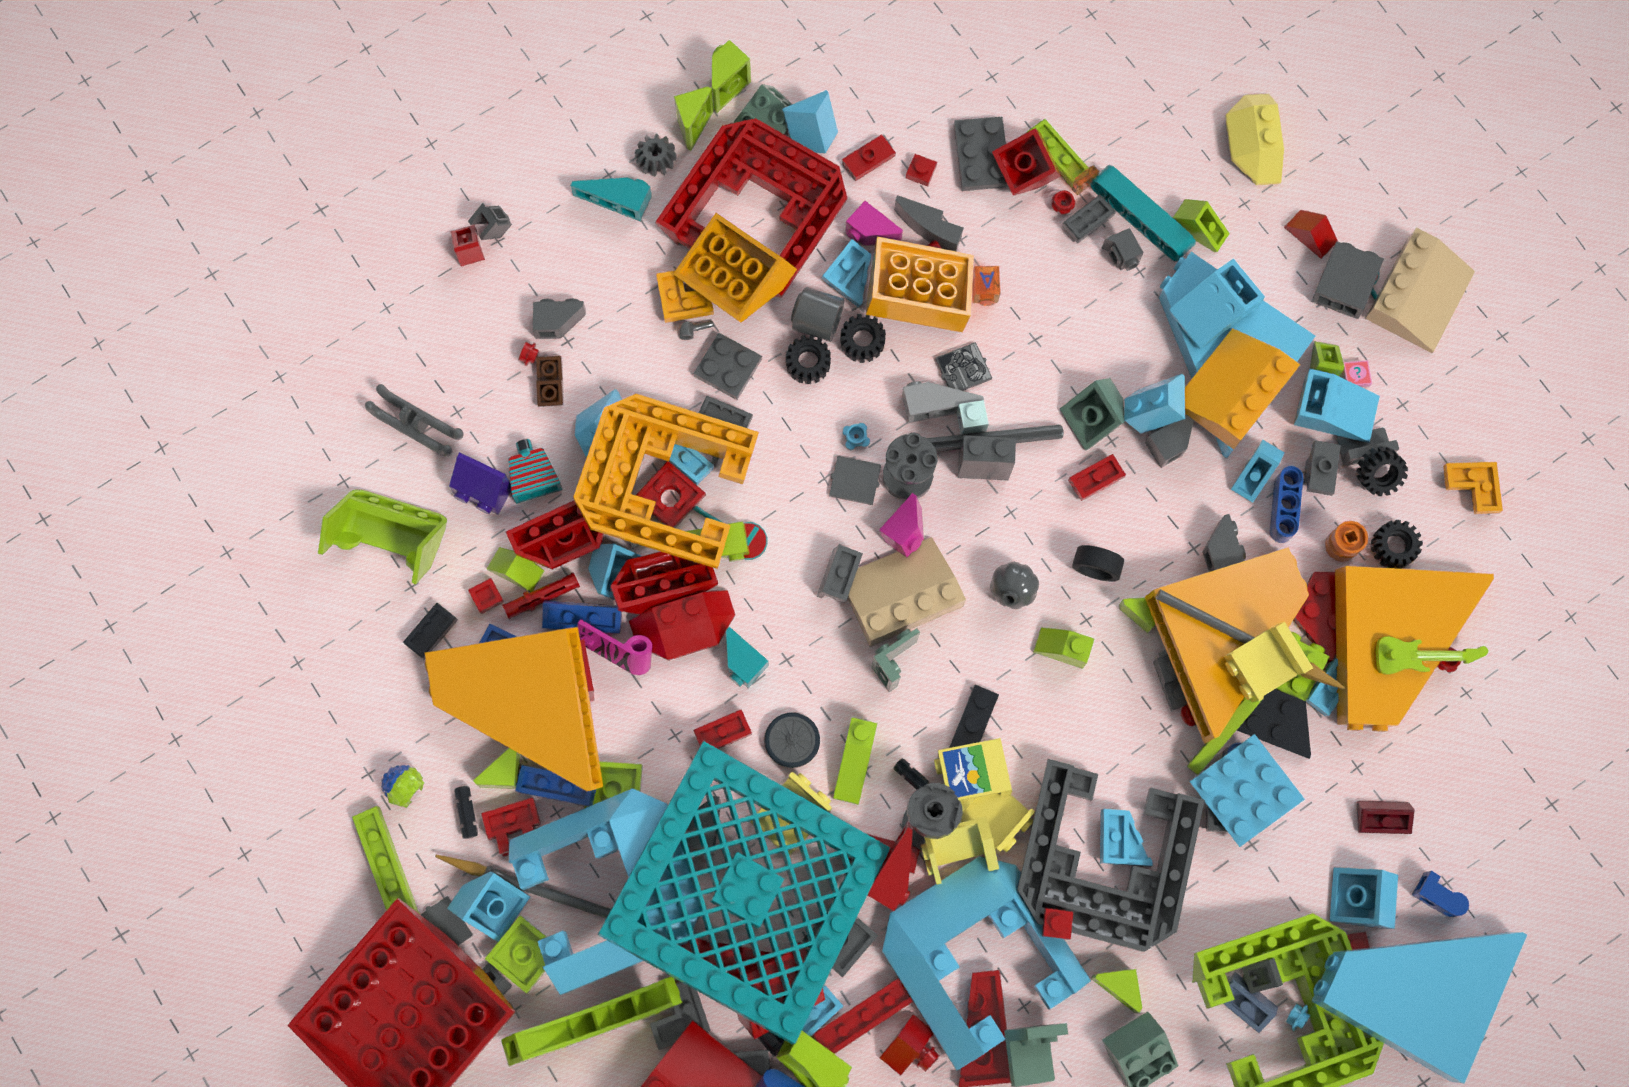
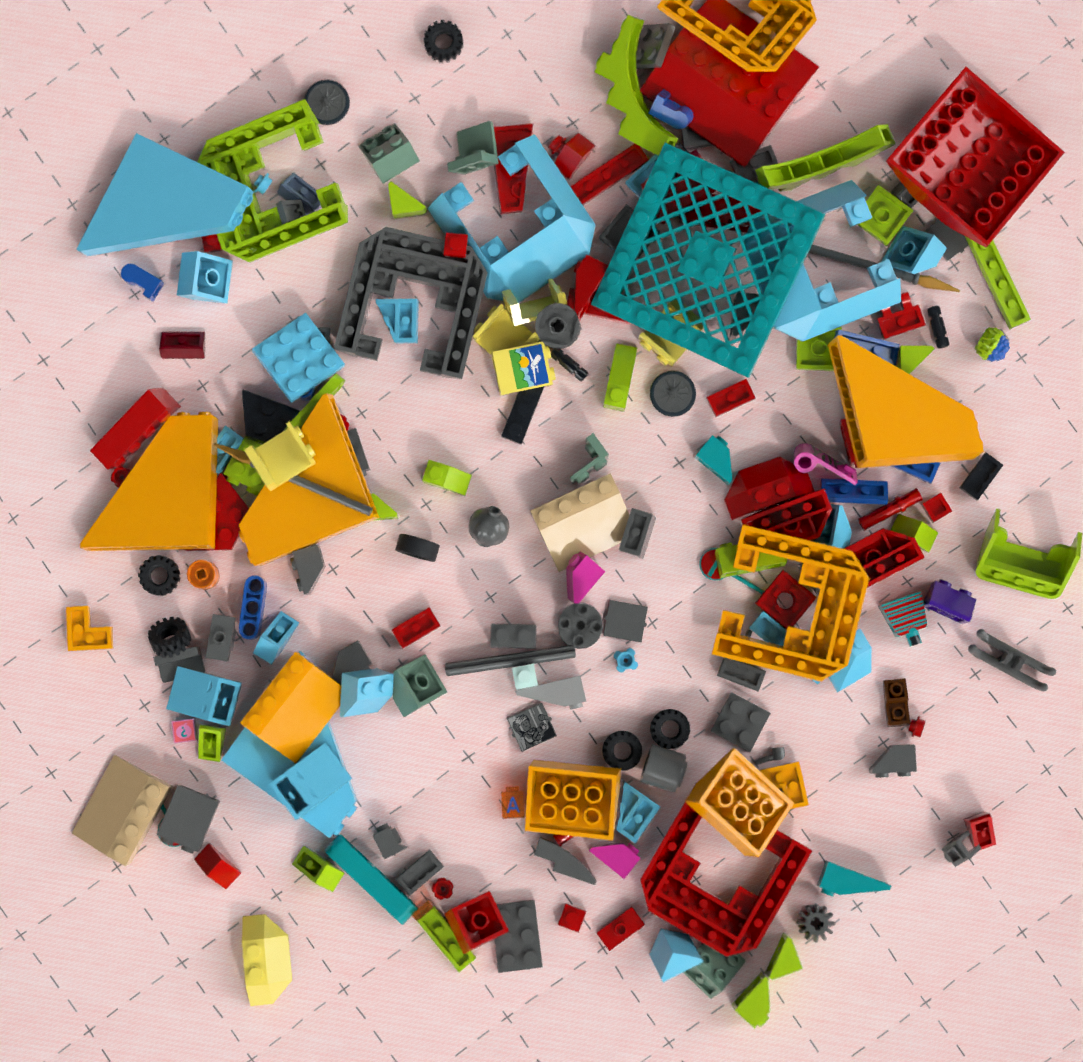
camera: 175 degrees left, 10 degrees up
(1397, 655) = (168, 471): lime piece -> none
(1436, 715) = (135, 427): none -> red wedge

